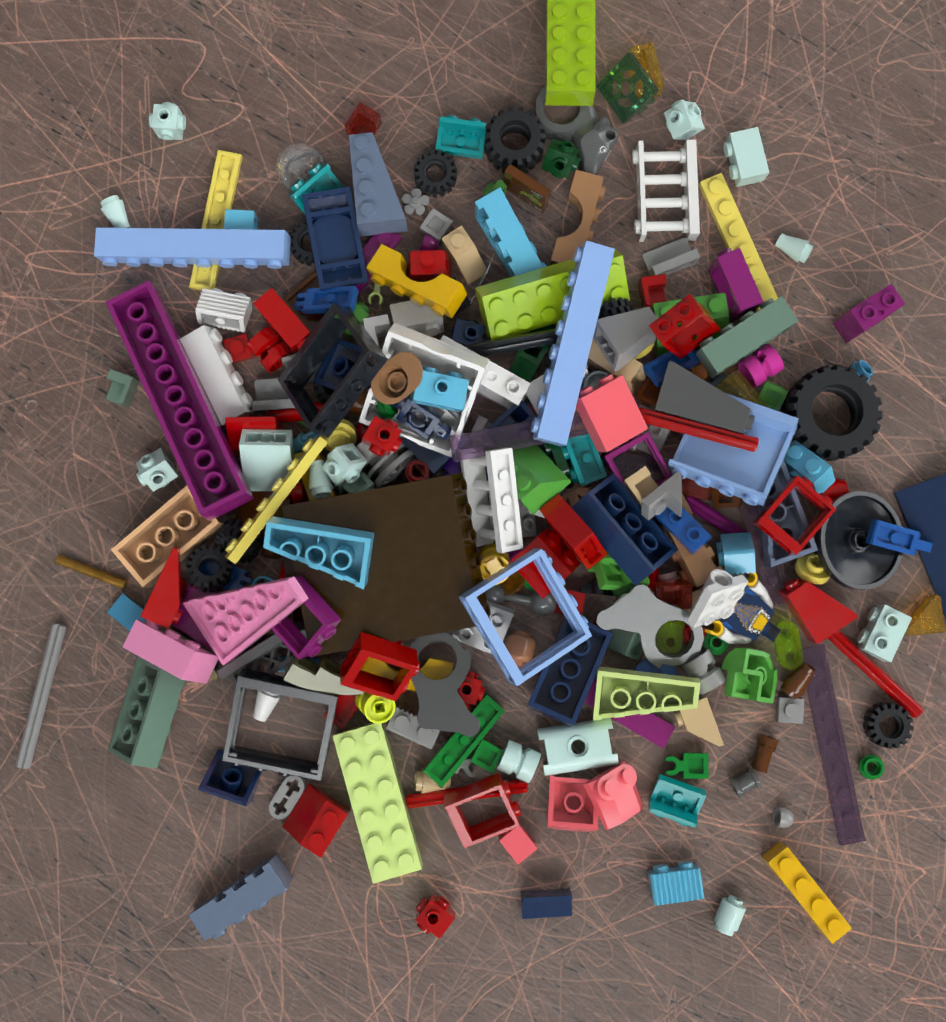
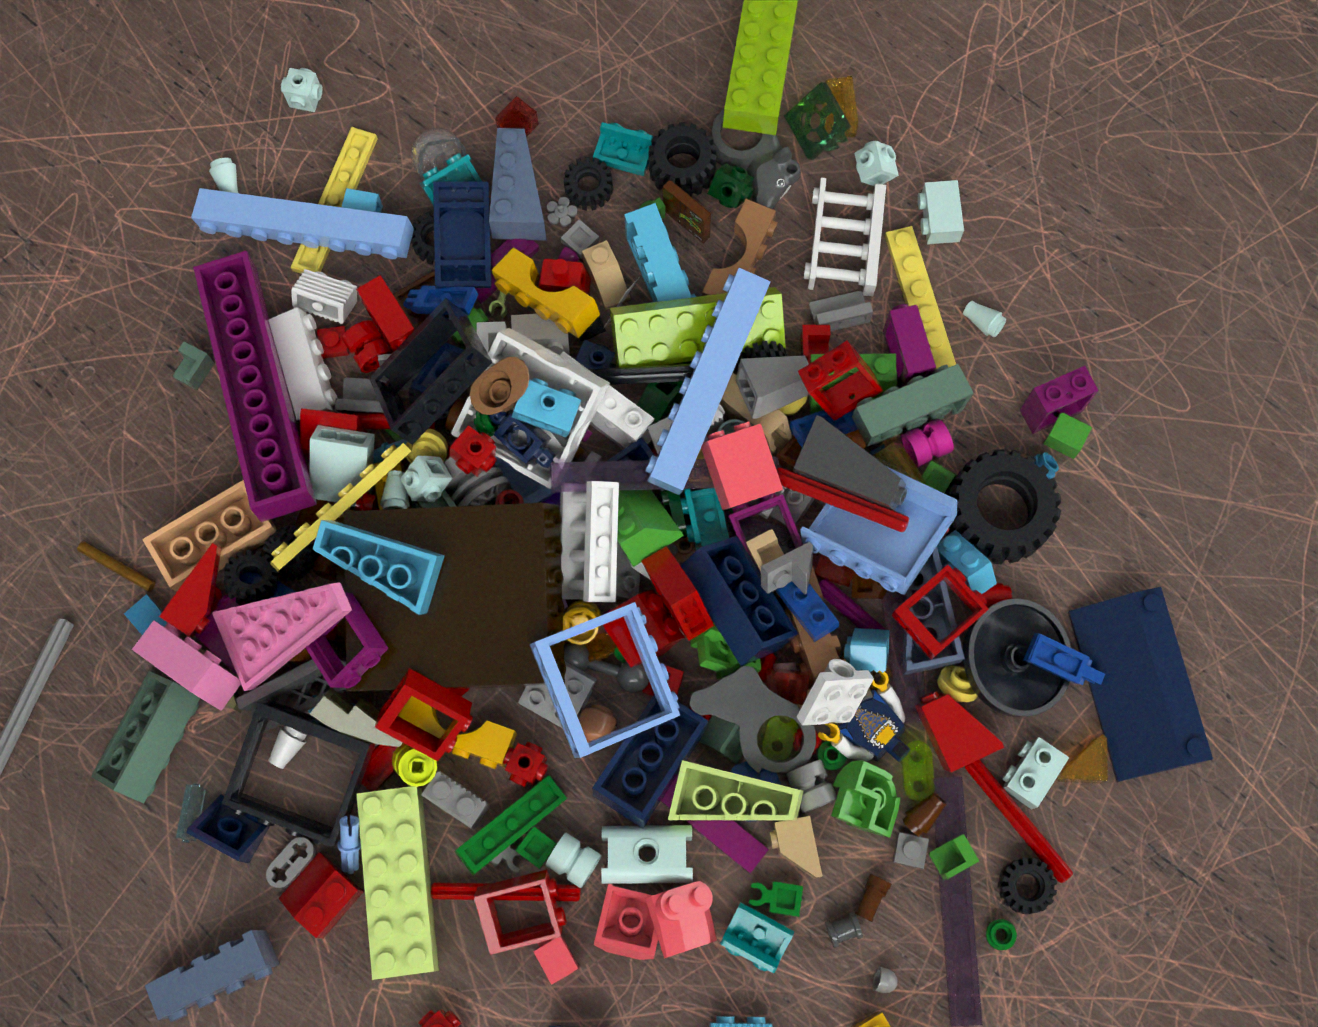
camera: 10 degrees right, 10 degrees down
(156, 470) = (212, 460): light aqua brick -> none
(197, 769) = (190, 810): none -> clear light blue piece
(333, 776) = (349, 844): none -> light blue axle
(425, 784) = (458, 872): tan cone -> none
(439, 699) = (489, 767): dark grey animal -> none
(593, 588) = (698, 672): black piece -> none
(827, 713) = (953, 857): none -> bright green panel
(878, 342) = (1068, 435): none -> bright green panel

